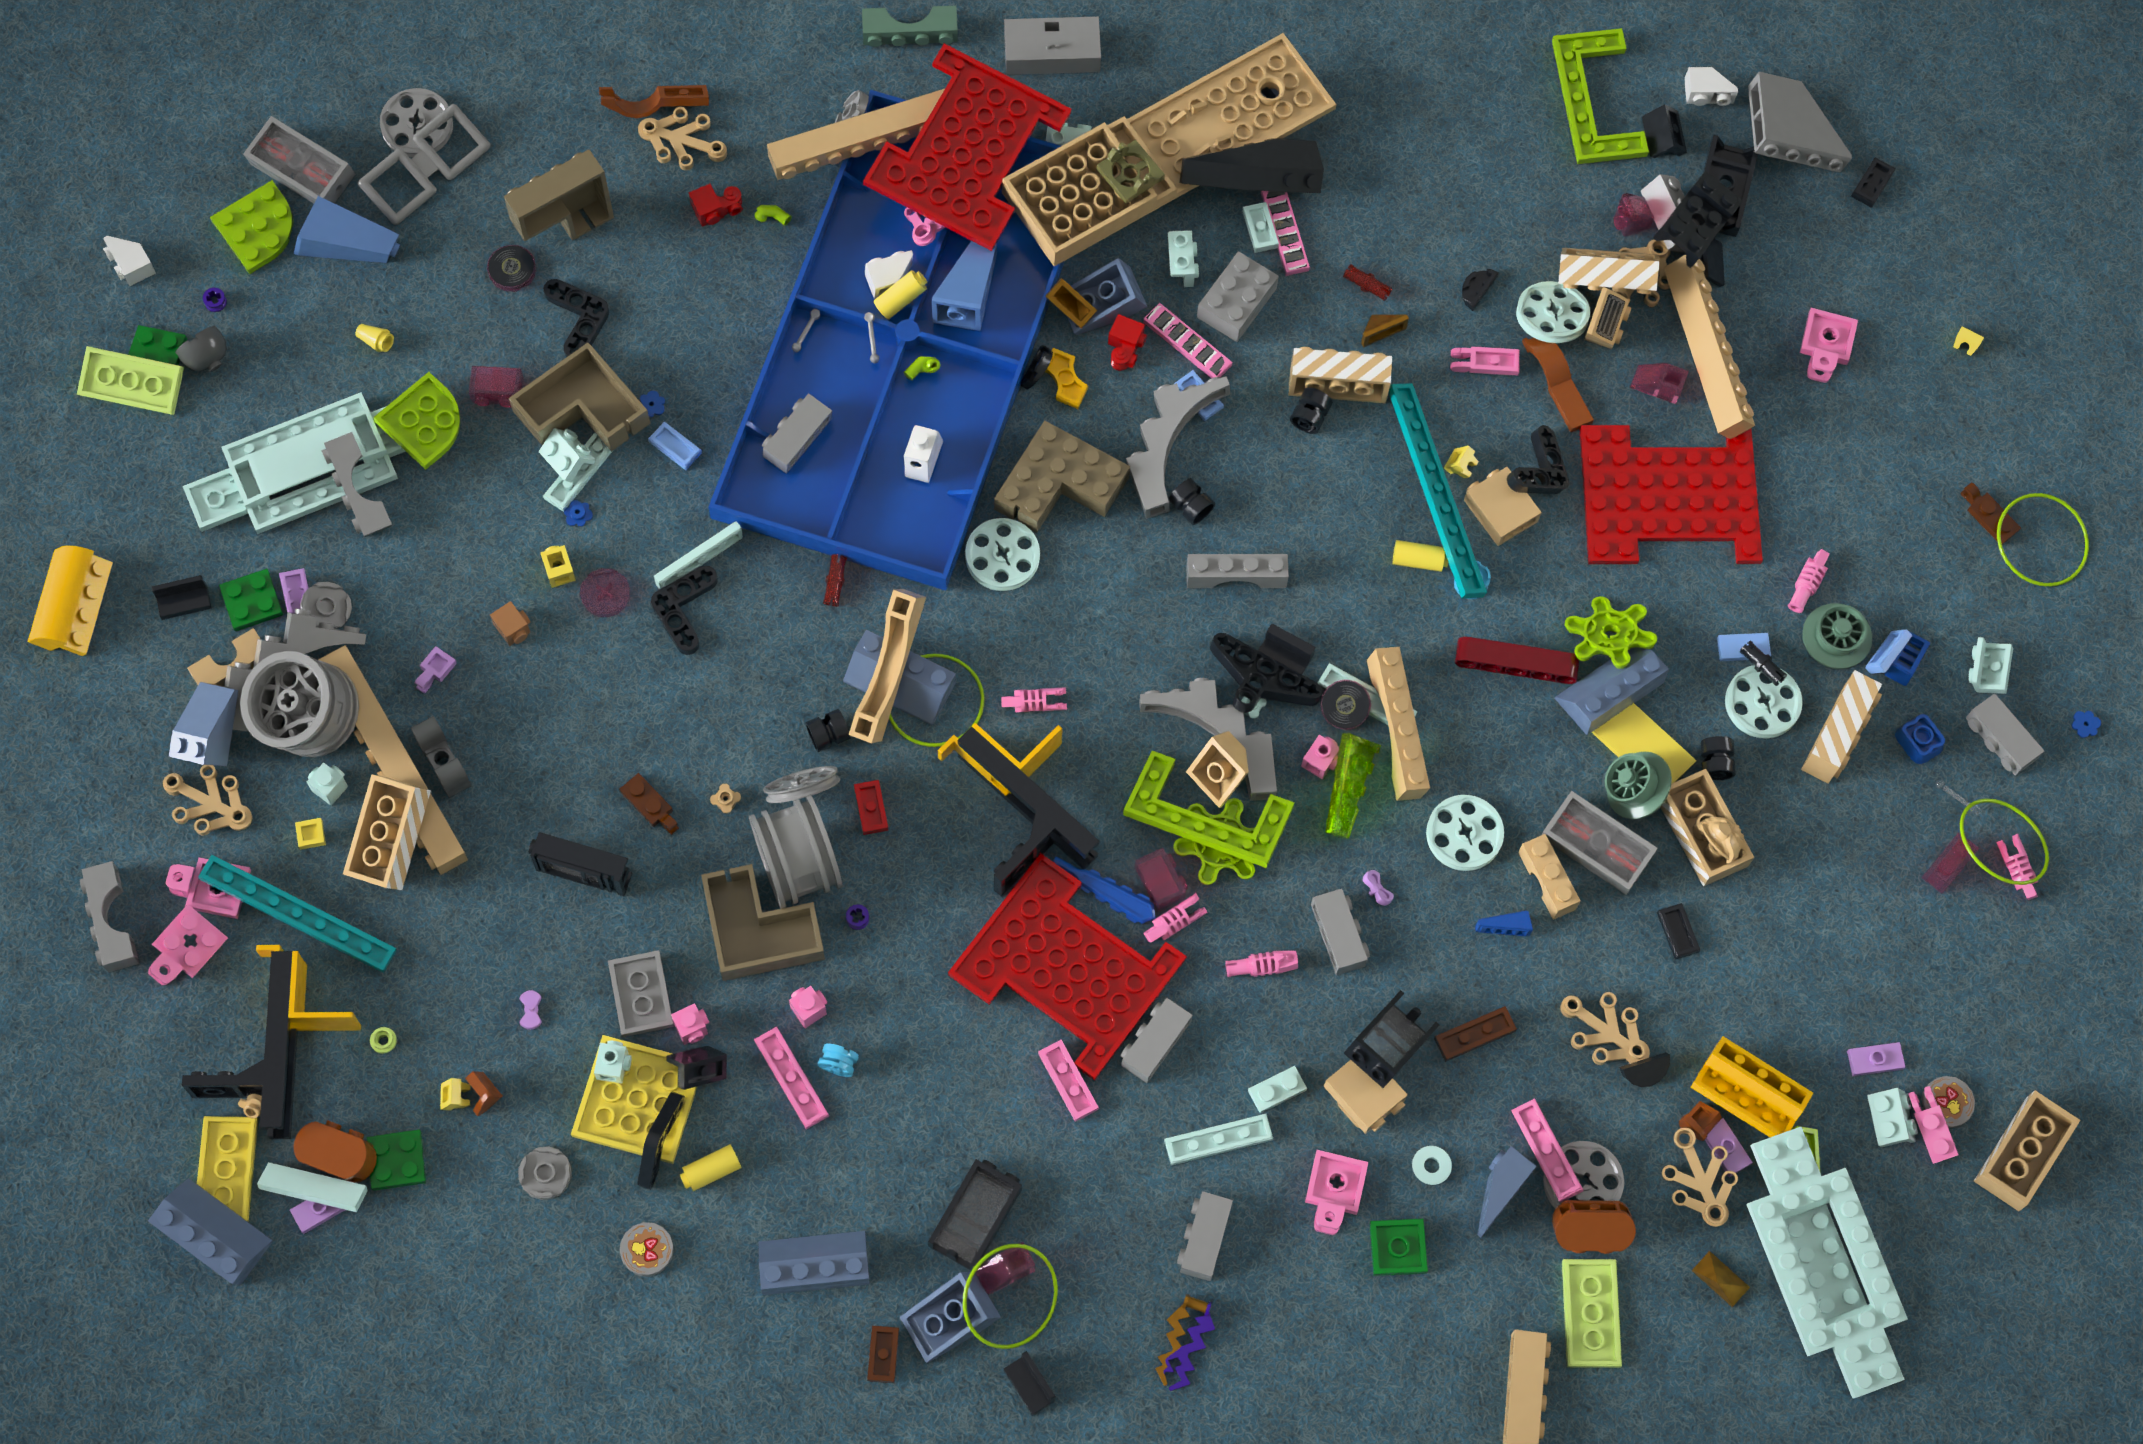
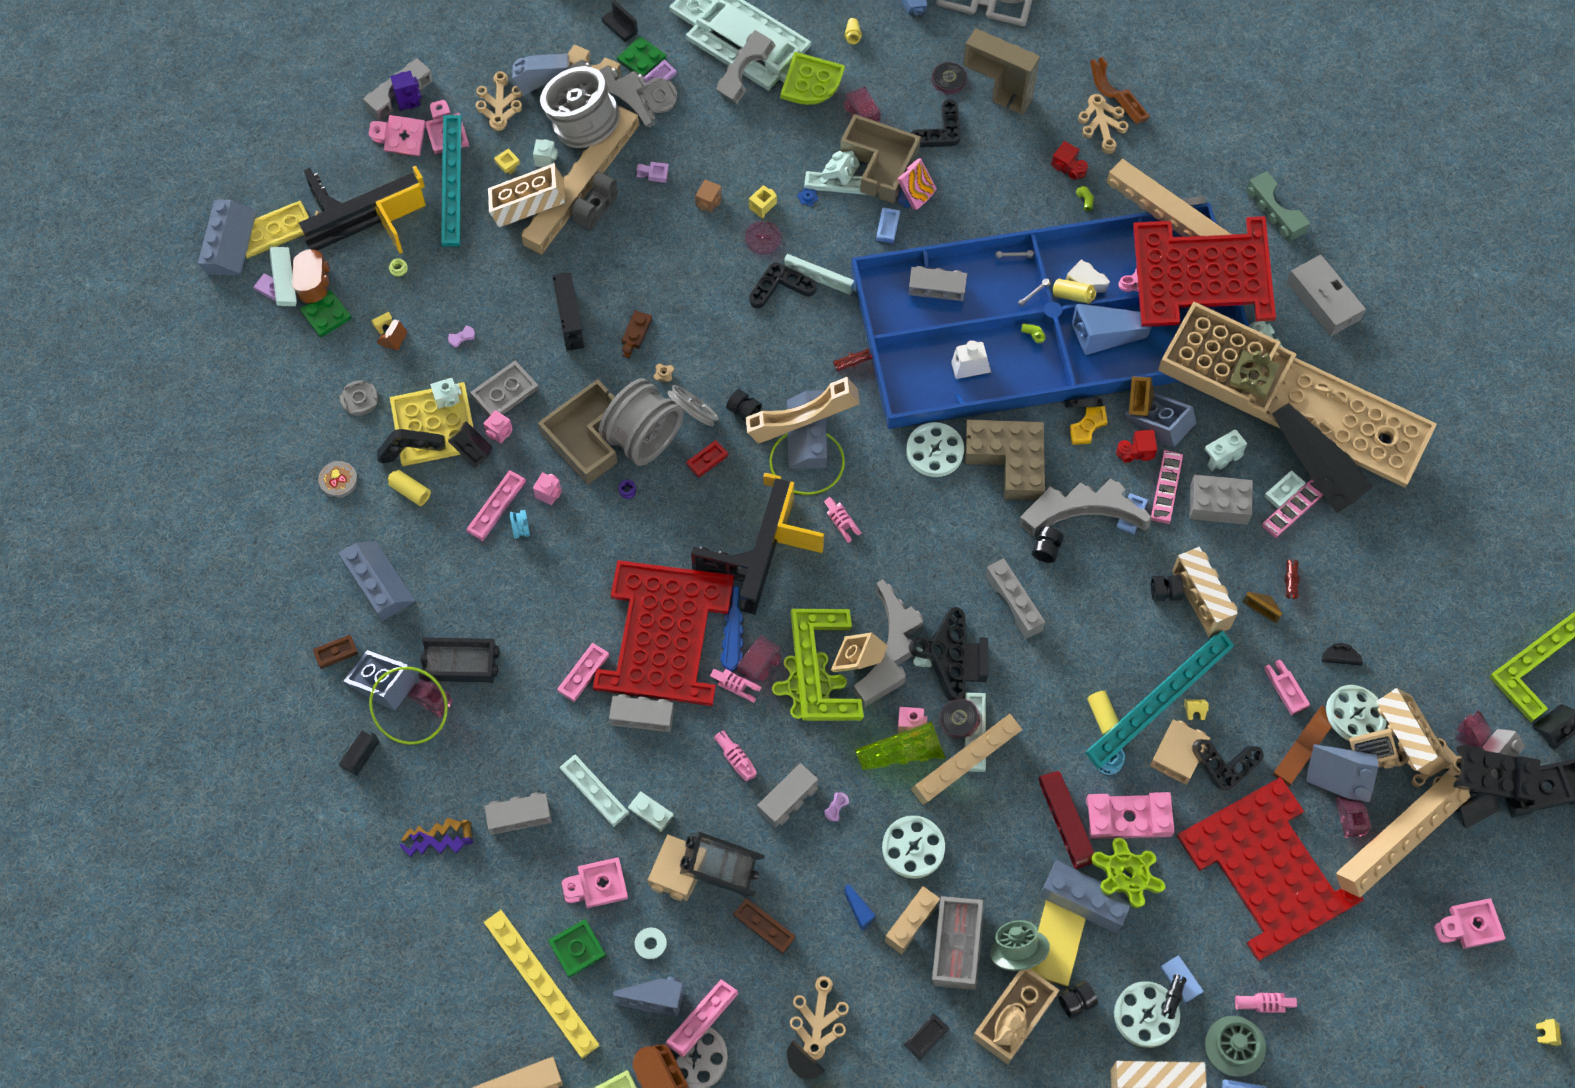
camera: 65 degrees right, 5 degrees down
(124, 905) = (406, 90): none -> dark purple brick
(647, 382) = (917, 184): none -> slope
(1417, 1306) = (541, 984): none -> light yellow plate
(1552, 573) = (1151, 813): none -> bright pink piece
(1614, 360) = (1343, 772): none -> sand blue slope

